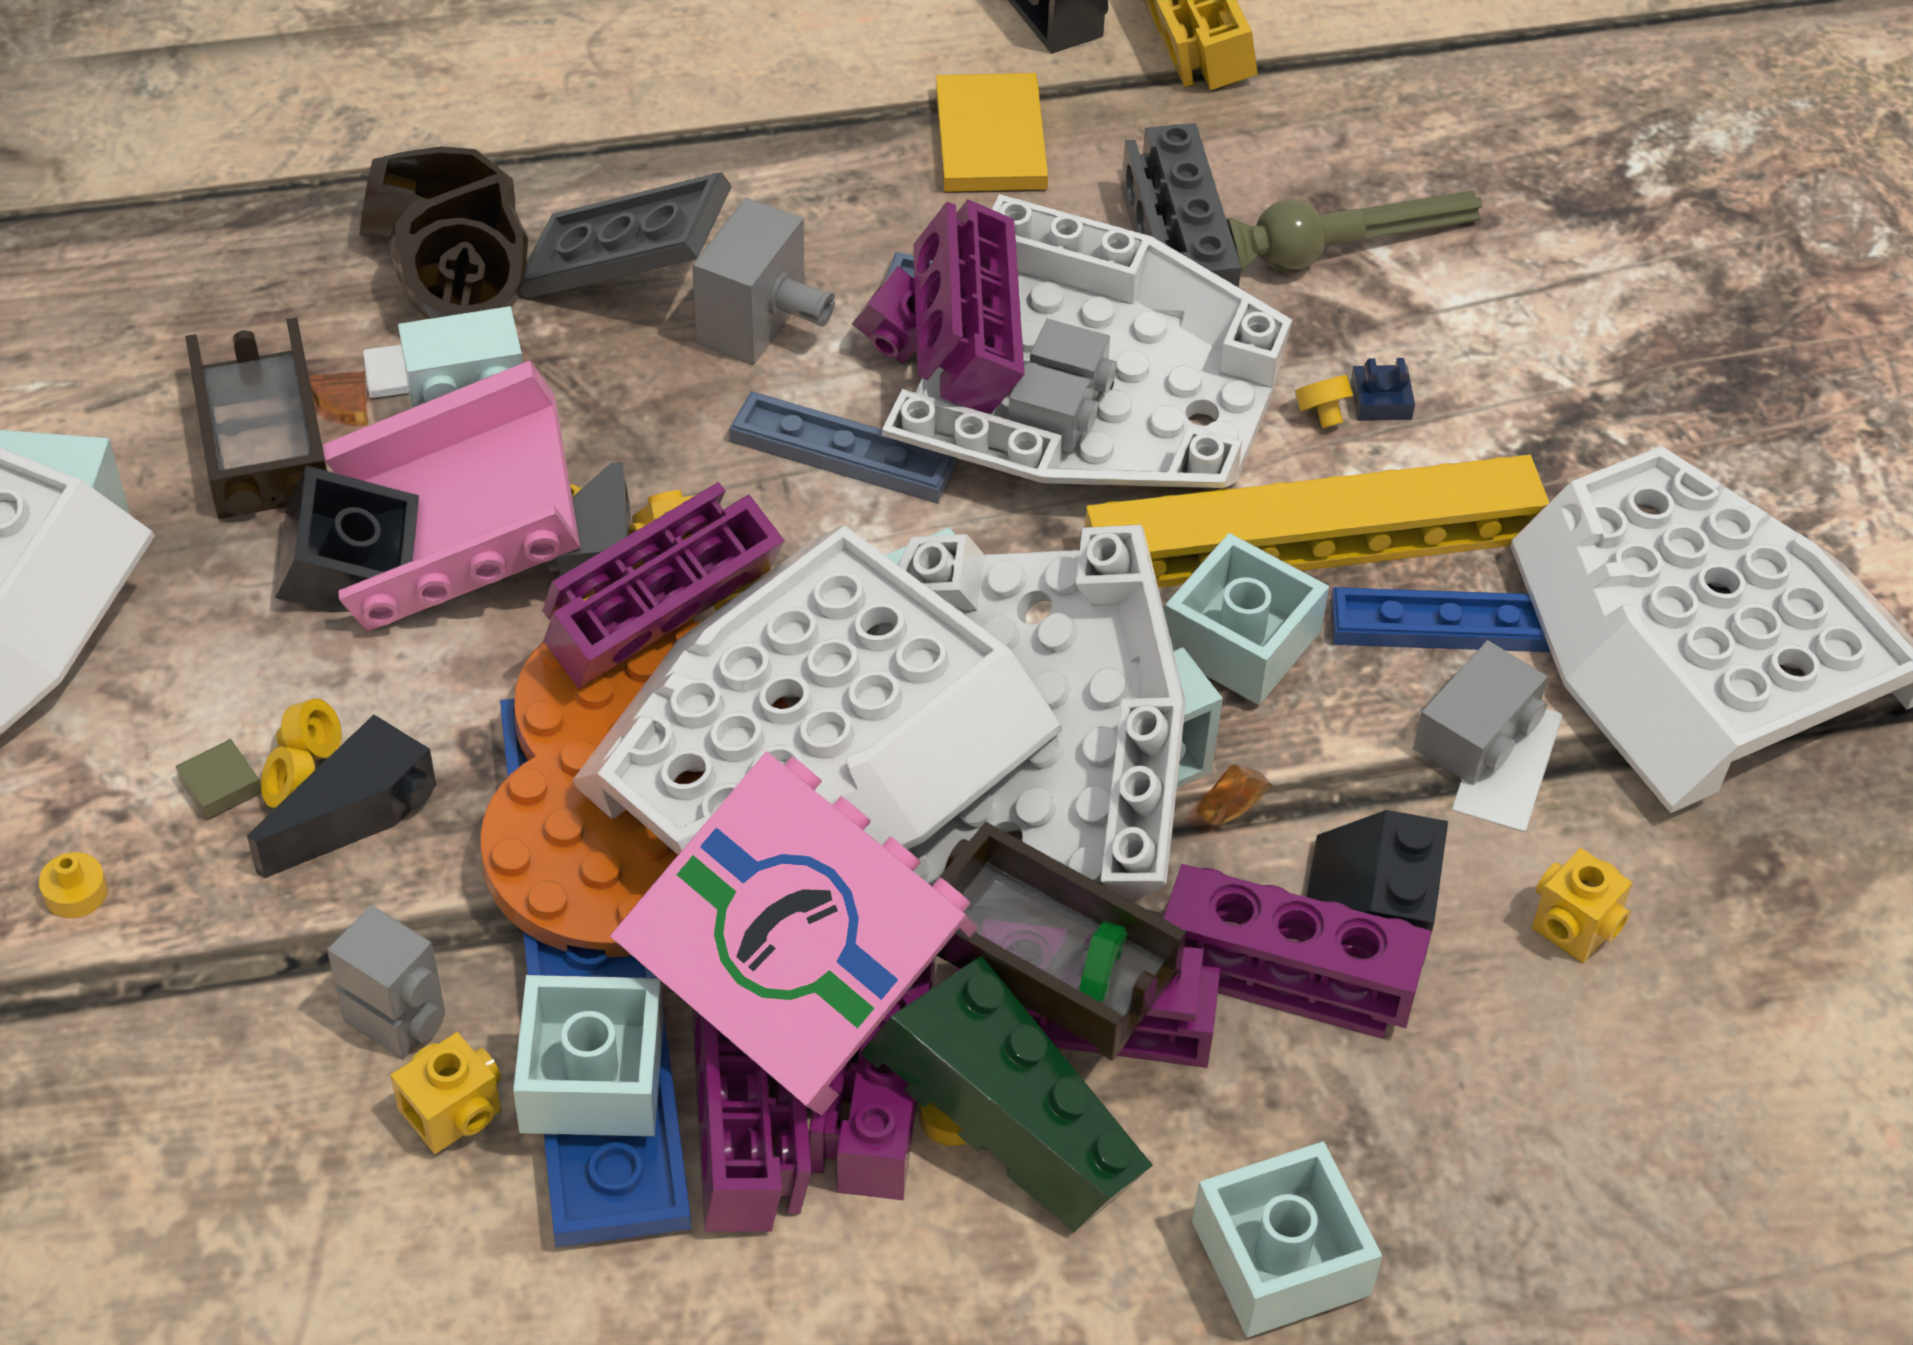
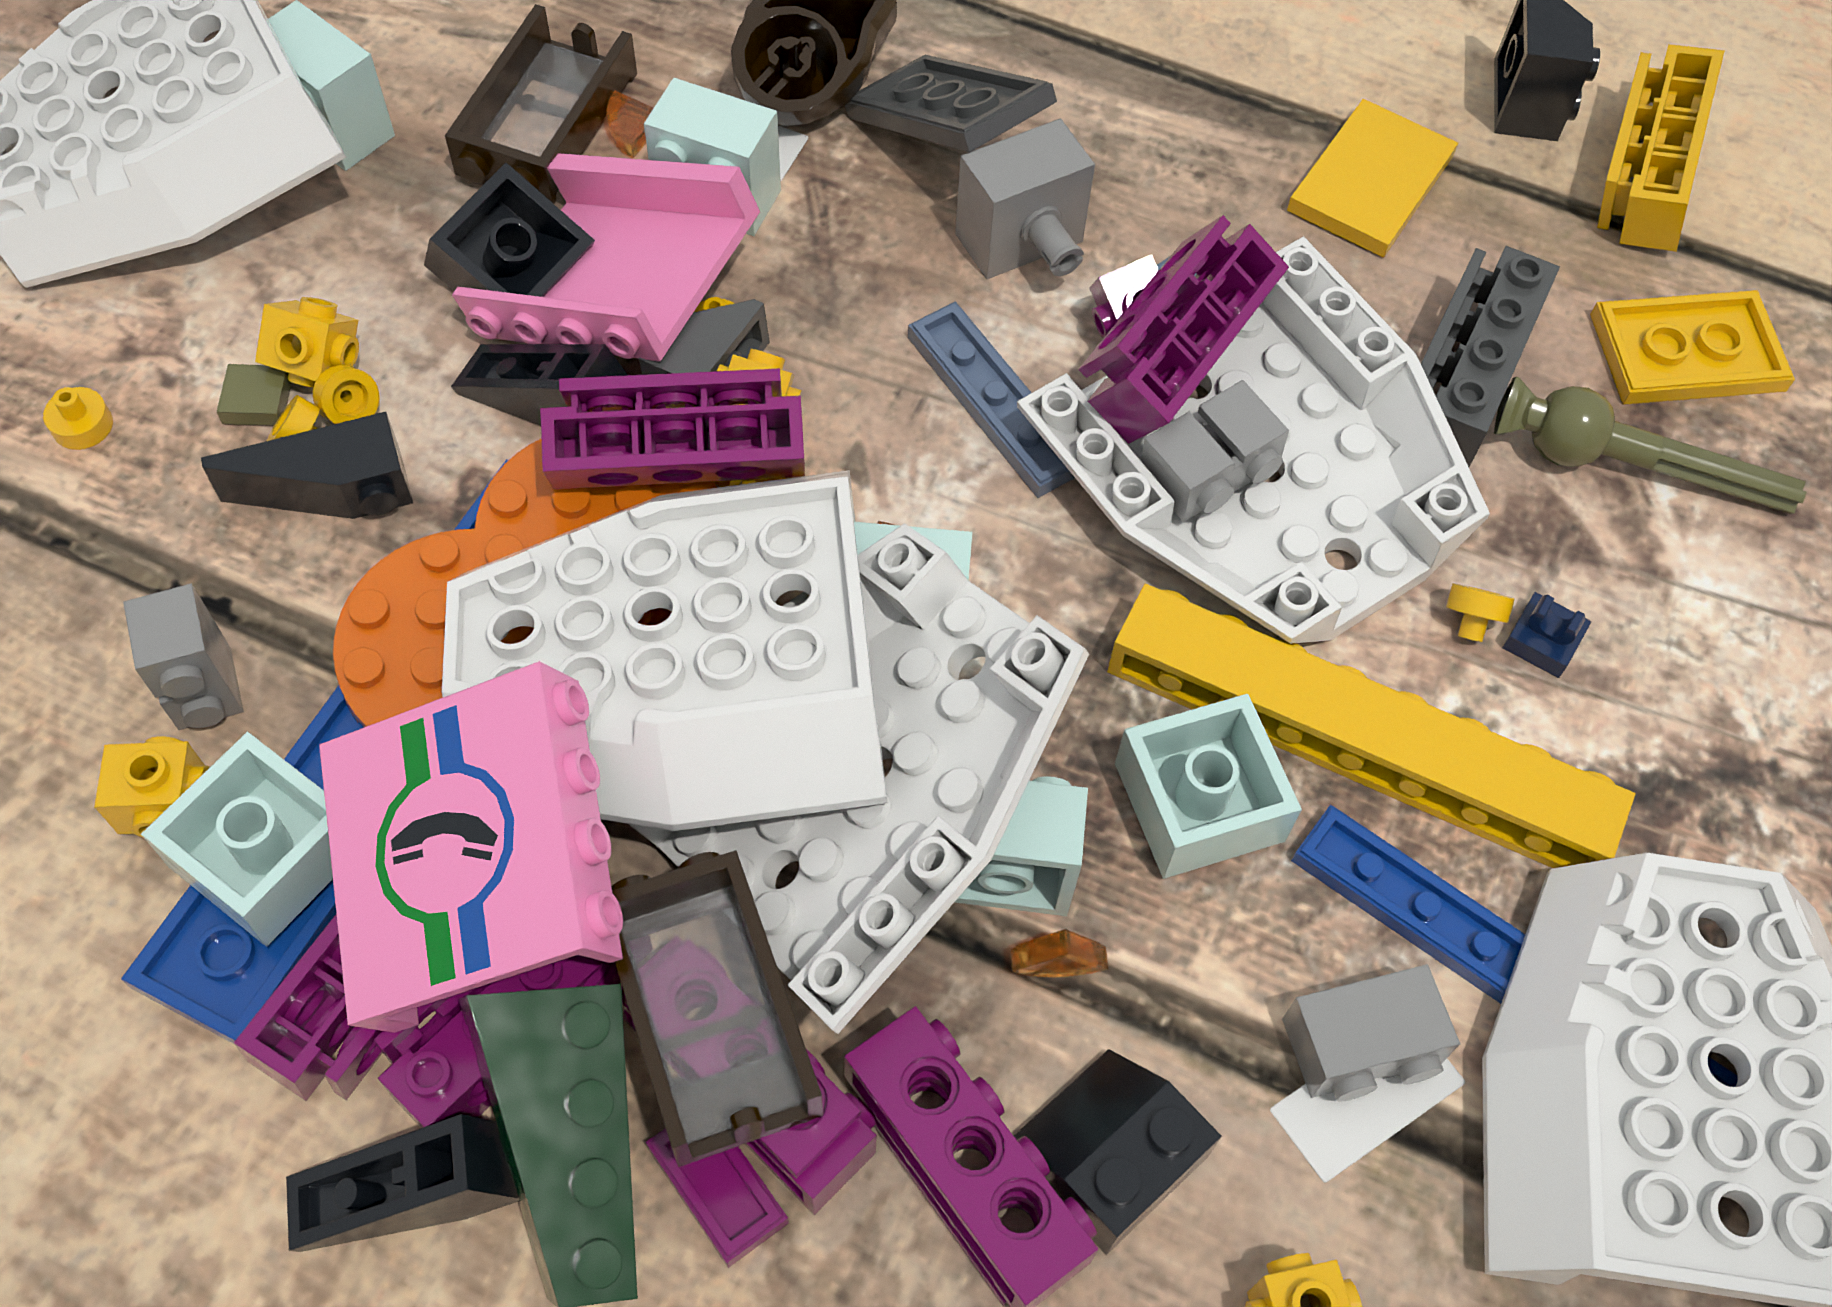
camera: 35 degrees right, 10 degrees up
(227, 723) = (306, 338): none -> yellow brick
(472, 631) = (527, 376): none -> black slope
(905, 1225) = (401, 1185): none -> black slope
(1104, 949) = (726, 1058): green tile -> none
(1135, 1087) = (723, 1198): none -> magenta tile
(1320, 139) = (1691, 347): none -> yellow tile

